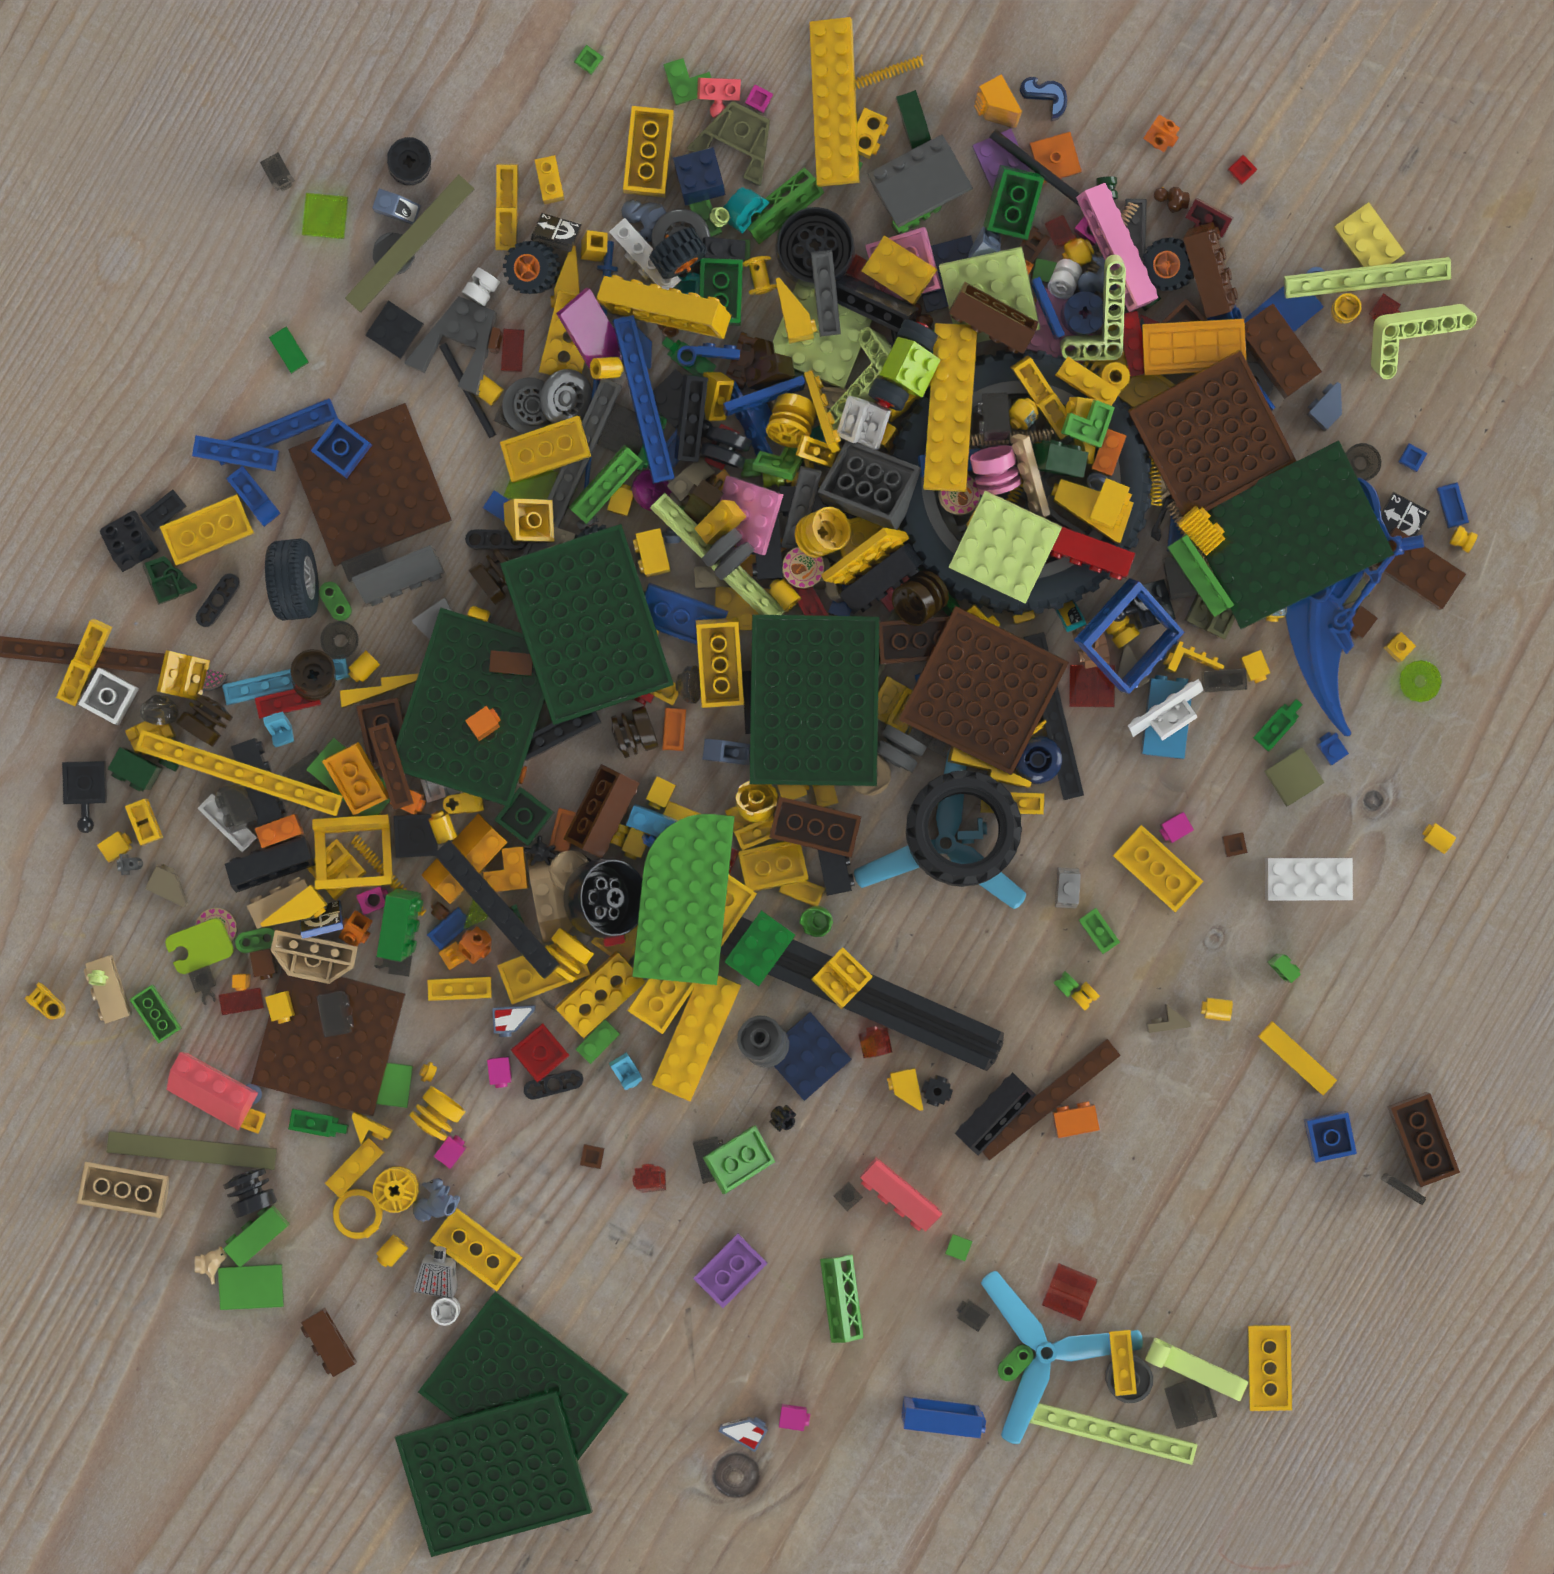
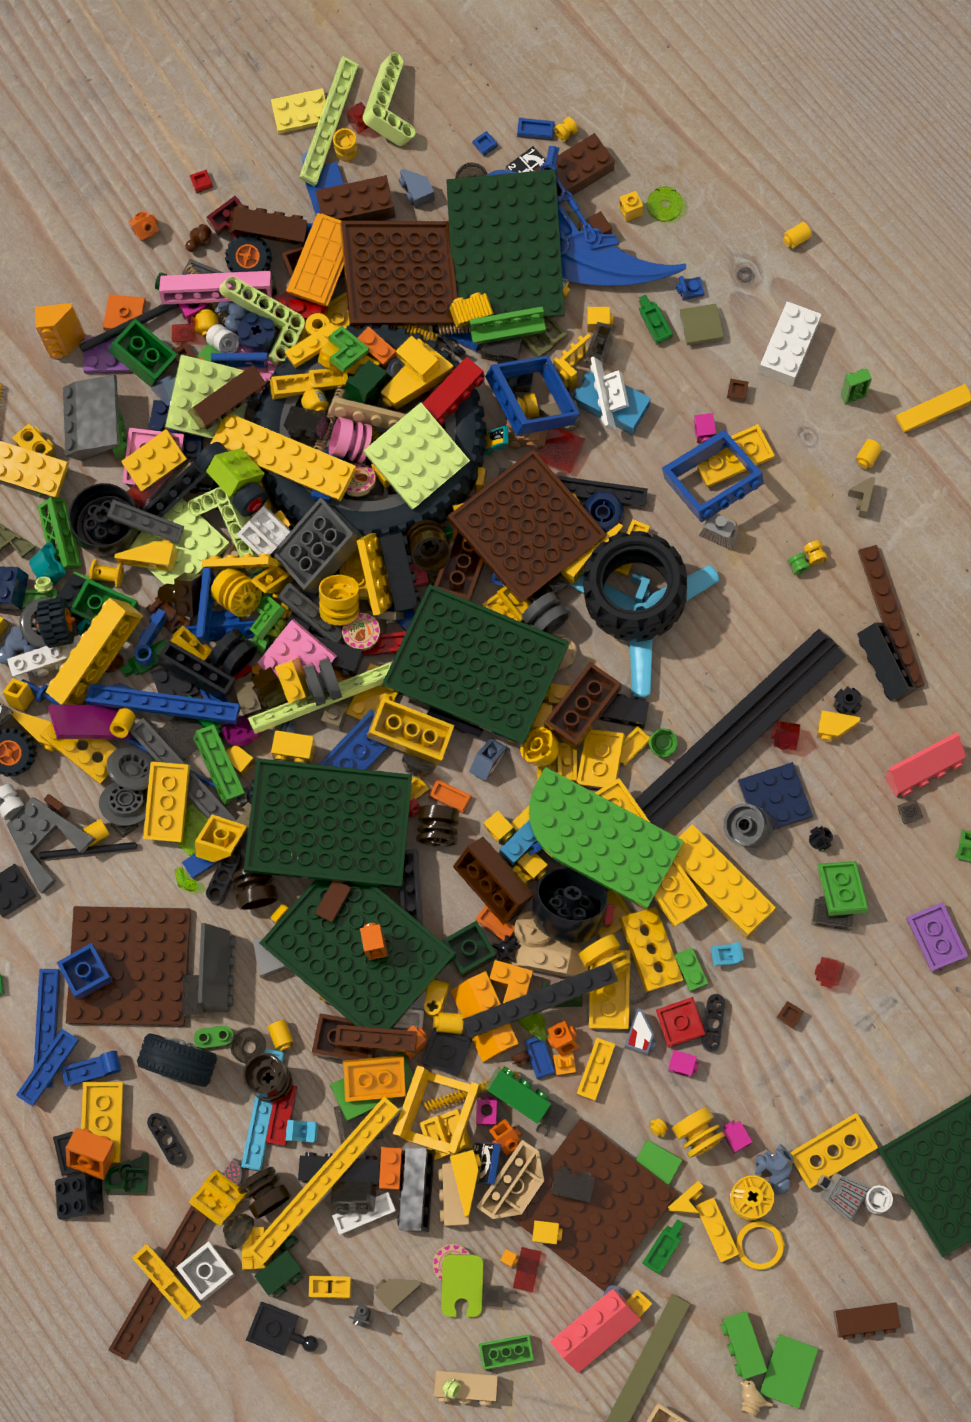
camera: 60 degrees left, 15 degrees down
(114, 845) = (340, 1323): yellow brick -> none
(168, 536) = (90, 1153): none -> orange brick
(250, 1192) = (702, 1332): black wheel -> none
(256, 940) = (478, 1232): bright green plate -> none
(263, 964) = (502, 1233): reddish brown brick -> none
(354, 696) = (305, 1019): yellow slope -> none
(391, 1251) = (805, 1227): yellow brick -> none
(474, 501) = (183, 882): none -> clear neon green arm
(512, 350) = (73, 799): clear red tile -> none
(759, 948) = (667, 793): green brick -> none
(784, 594) = (376, 657): yellow brick -> none
(842, 977) = (720, 738): yellow slope -> none
(913, 119) = (40, 405): dark green slope -> none
(1049, 91) = (73, 292): dark blue animal -> none
(1075, 1120) = (917, 600): orange brick -> none
(1099, 931) = (765, 521): bright green plate -> none
(1136, 832) = (697, 456): none -> blue window

